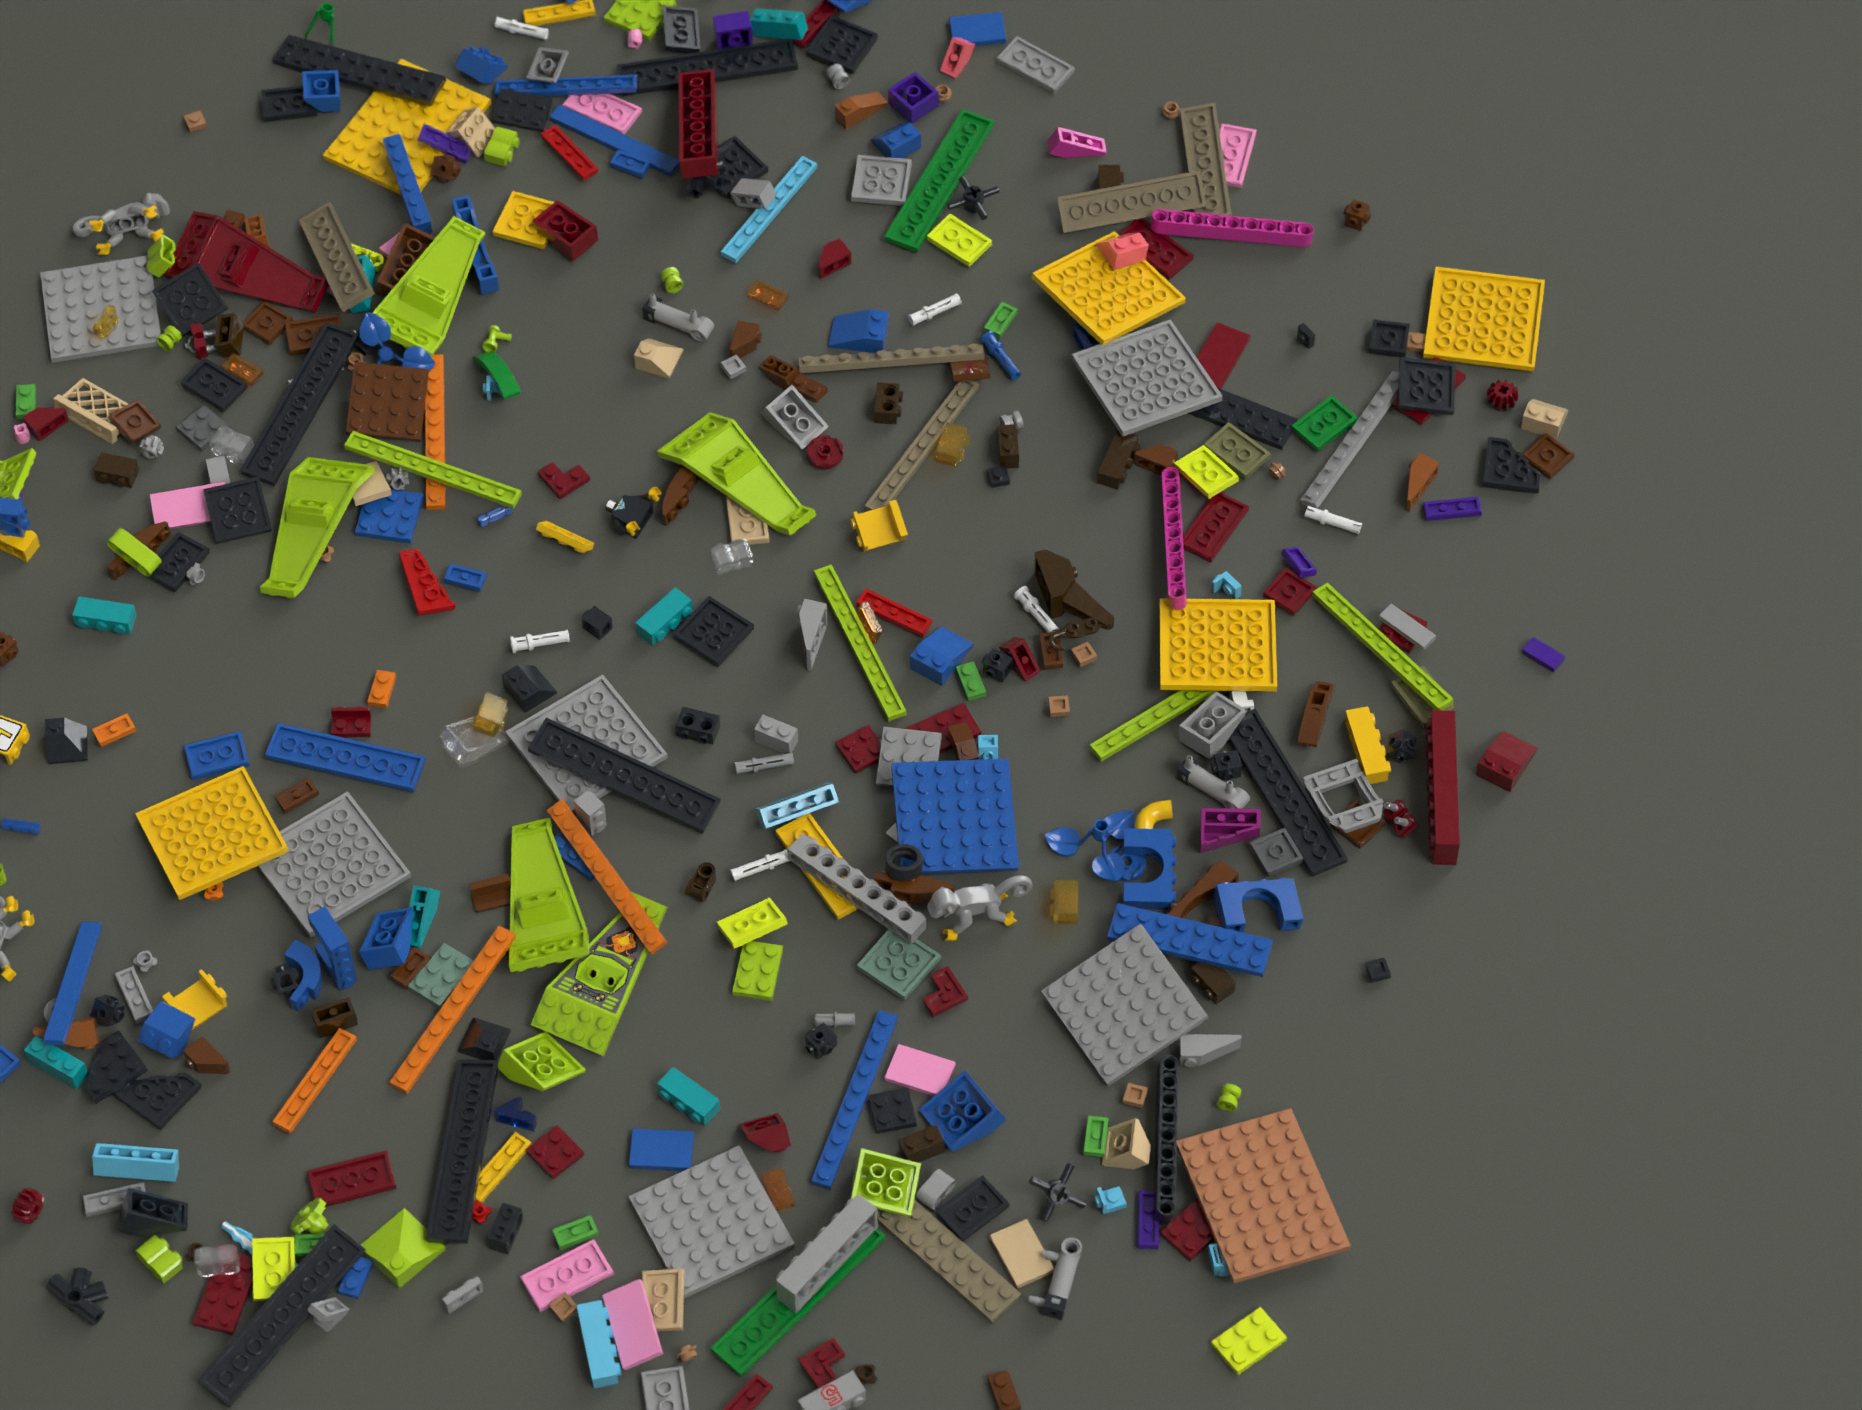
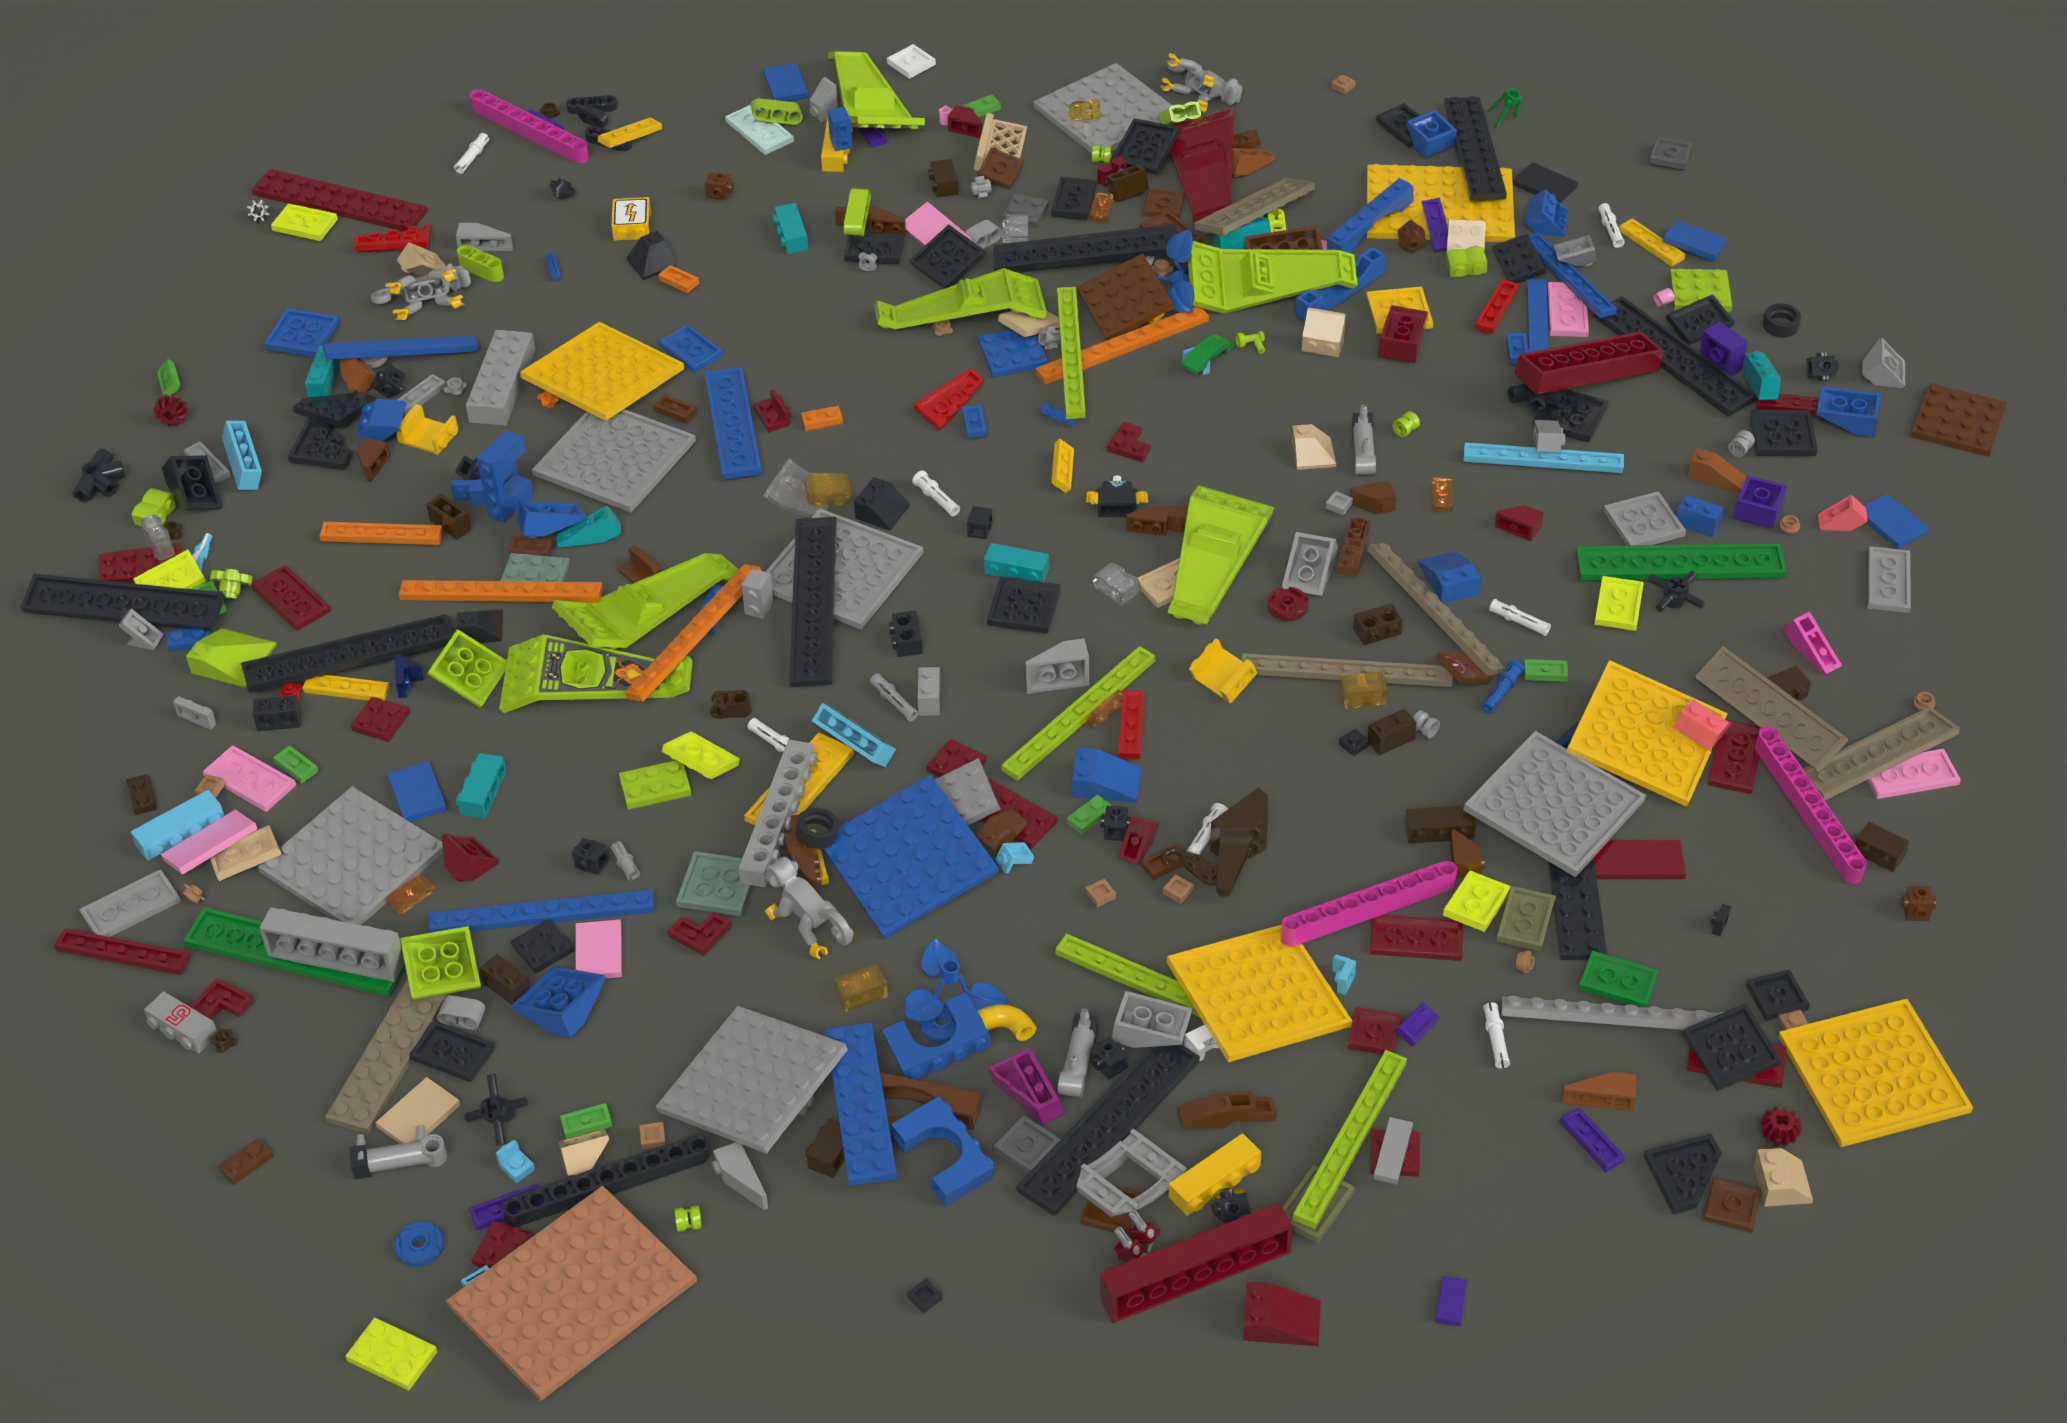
camera: 65 degrees right, 10 degrees down
(162, 917) = (500, 377): none -> light grey brick
(433, 45) = (1537, 178): none -> black tile
(529, 283) = (1323, 332): none -> tan slope
(536, 1366) = (141, 794): none -> dark brown plate
(1156, 1302) = (421, 1255): none -> blue tile
(1293, 207) = (1882, 846): none -> dark brown brick

